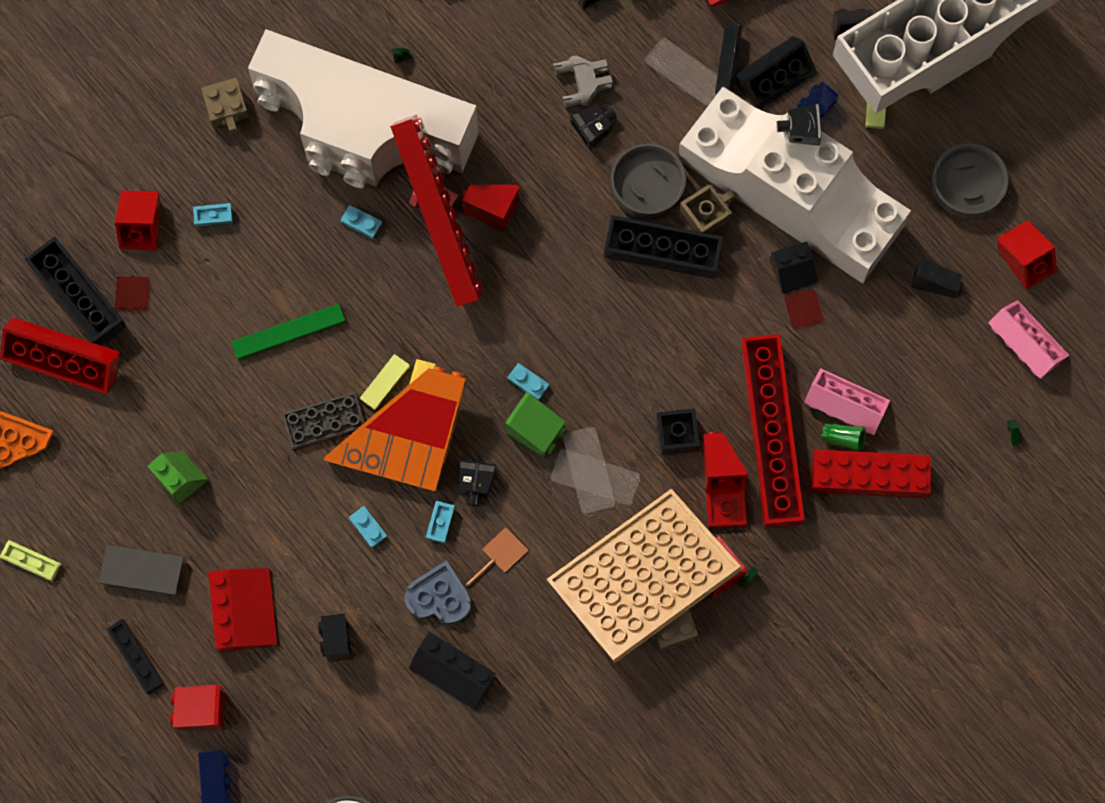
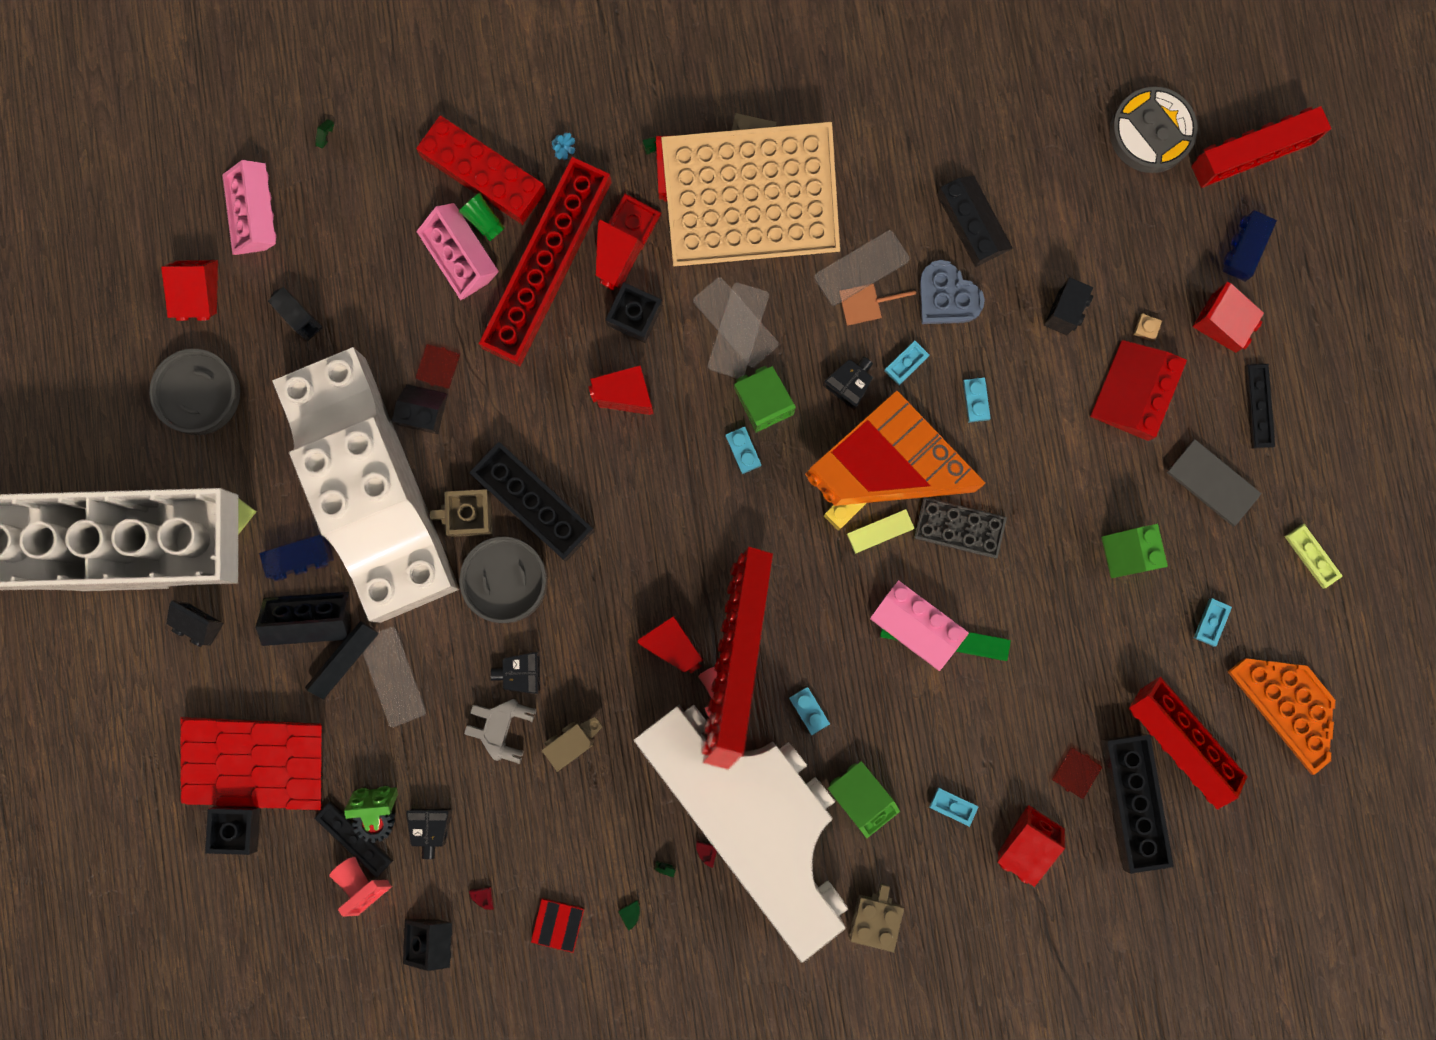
camera: 150 degrees left, 10 degrees up
(85, 461) = (1212, 622): none -> medium azure plate
(261, 666) = (1147, 327): none -> tan plate
(284, 180) = (863, 799): none -> bright green slope
(313, 325) = (919, 625): none -> bright pink slope
(408, 12) = (630, 914): none -> dark green tile
(521, 579) = (861, 268): none -> clear piece
(523, 94) = (570, 745): none -> dark tan hinge
(646, 365) = (622, 391): none -> red slope
(802, 125) = (320, 500): black torso -> none
(820, 532) = (562, 145): none -> dark azure plant

